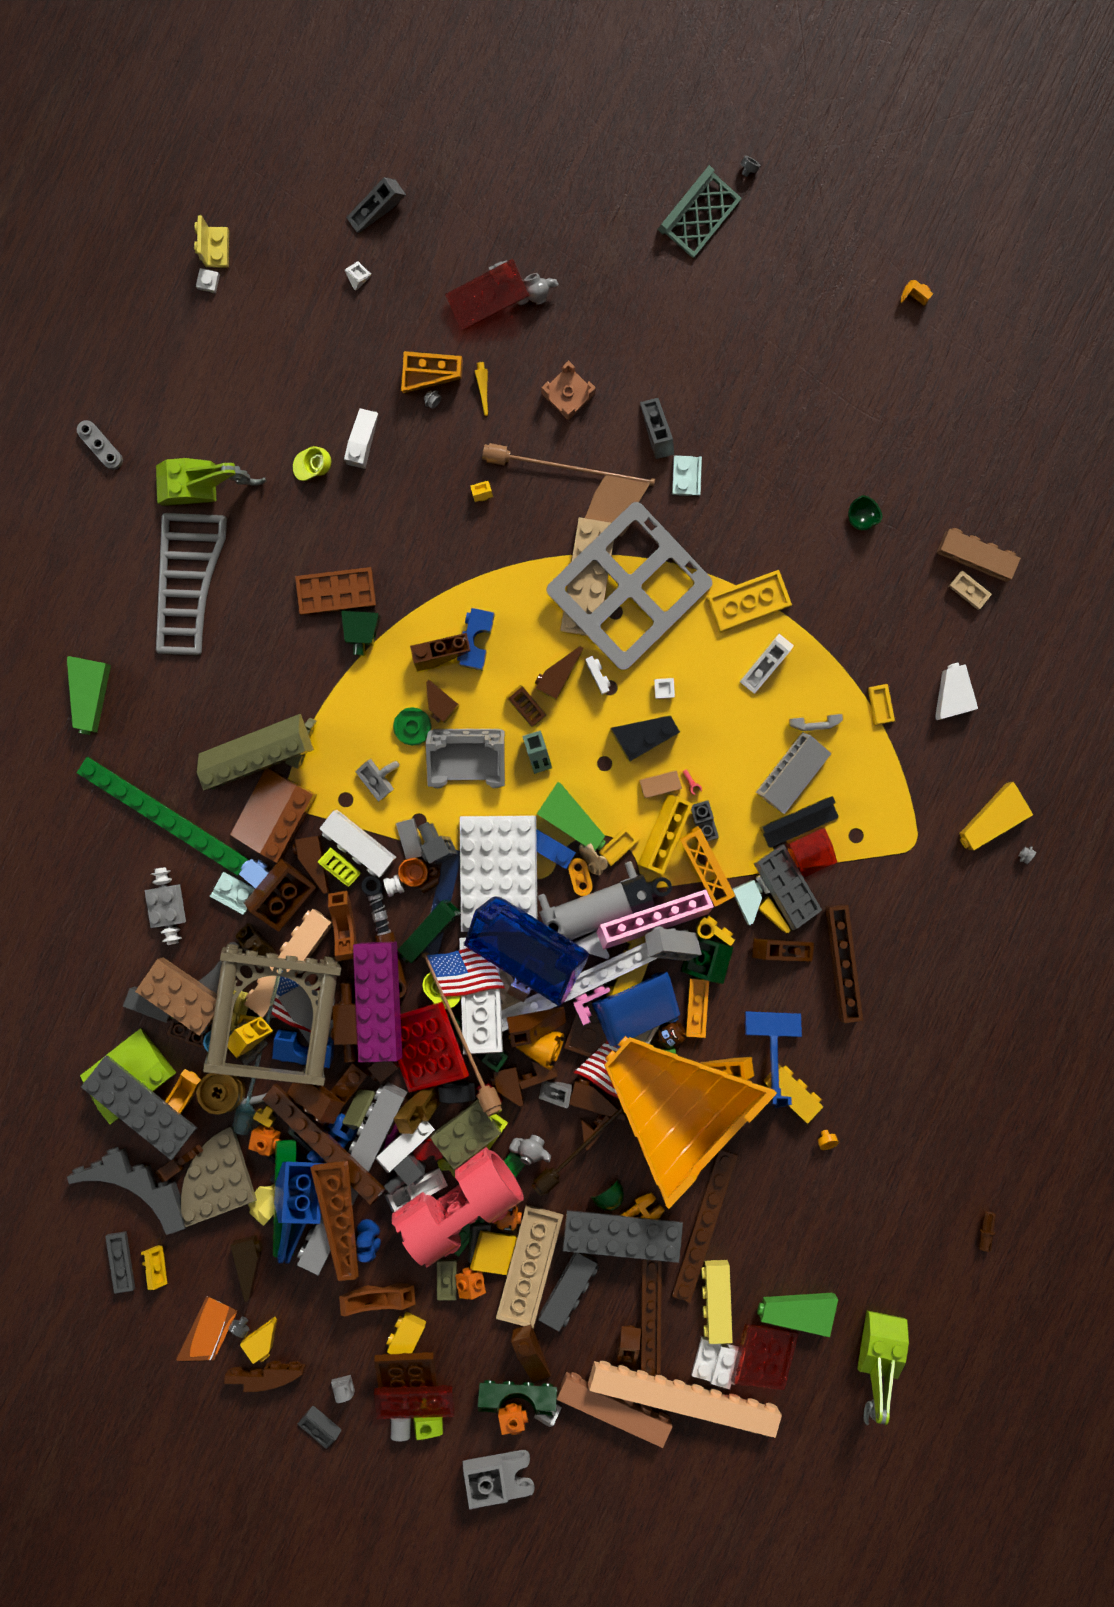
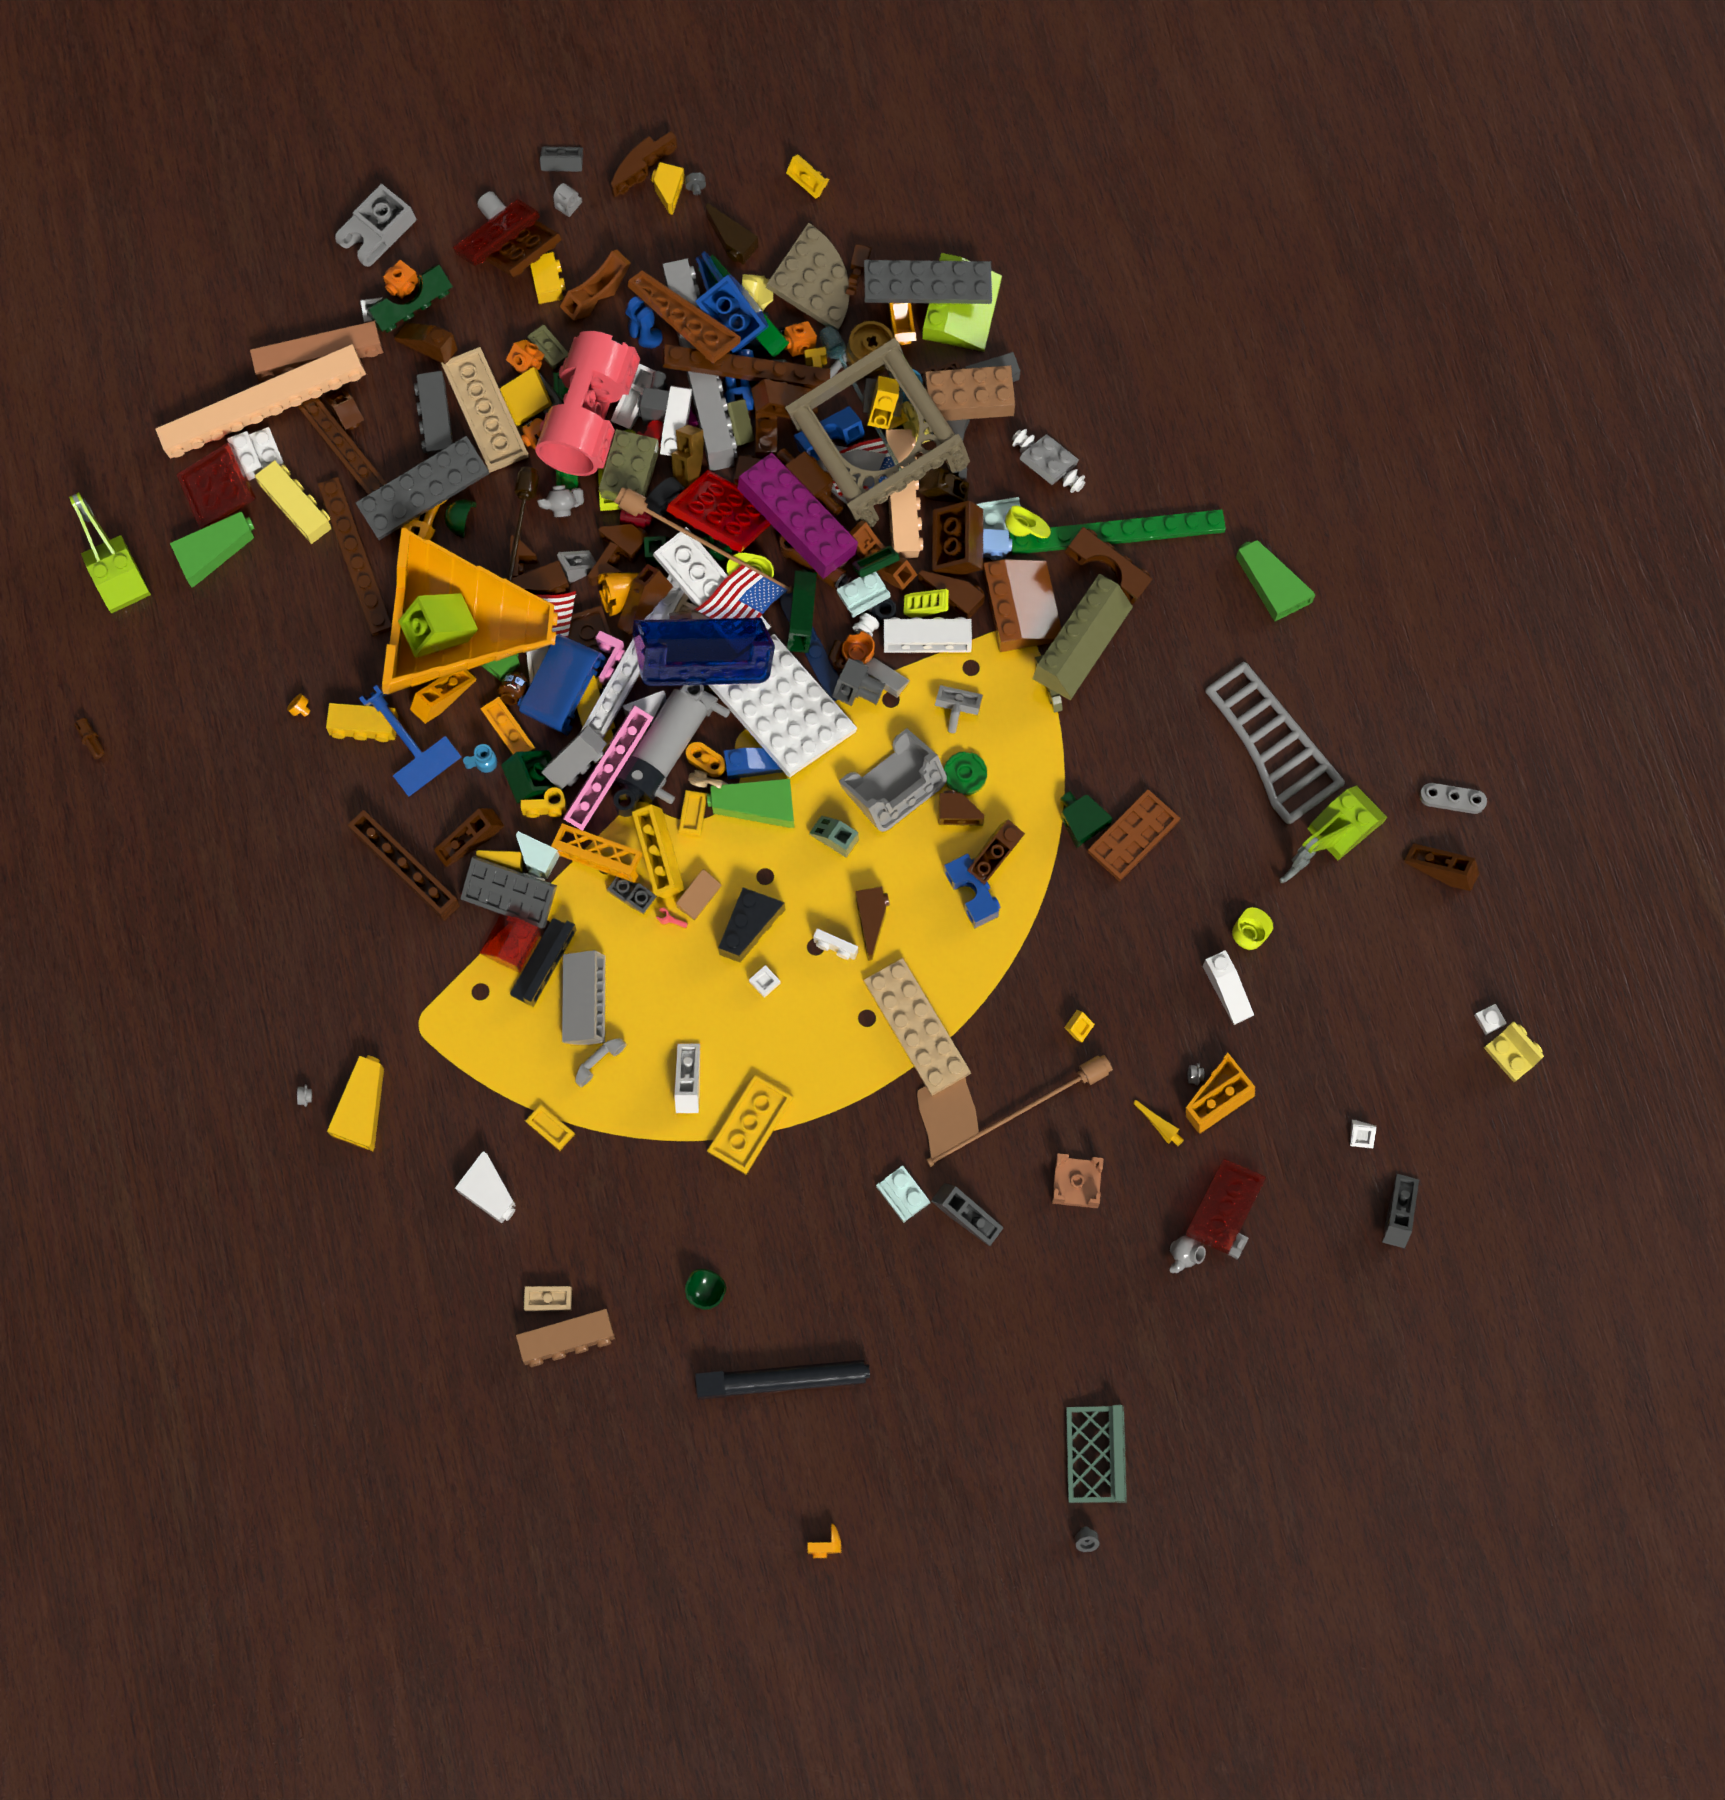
camera: 145 degrees right, 15 degrees down
(116, 1169) = (878, 232): dark grey arch -> none
(120, 1262) = (839, 159): dark grey plate -> none
(148, 403) = (1445, 866): none -> reddish brown slope
(185, 772) = (1088, 548): none -> reddish brown arch
(207, 1331) = (719, 162): orange sticker -> none
(223, 870) = (1023, 522): none -> neon yellow cap
(350, 923) = (875, 561): none -> dark green tile
(377, 907) = (863, 593): none -> light aqua plate
(428, 1427) = (468, 222): lime leg -> none
(520, 689) = (879, 861): reddish brown slope -> none
(628, 586) = (872, 1045): light grey window -> none
(693, 1118) = (437, 623): none -> lime slope
(730, 999) = (483, 758): none -> dark azure piece
(904, 446) = (724, 1384): none -> black brick

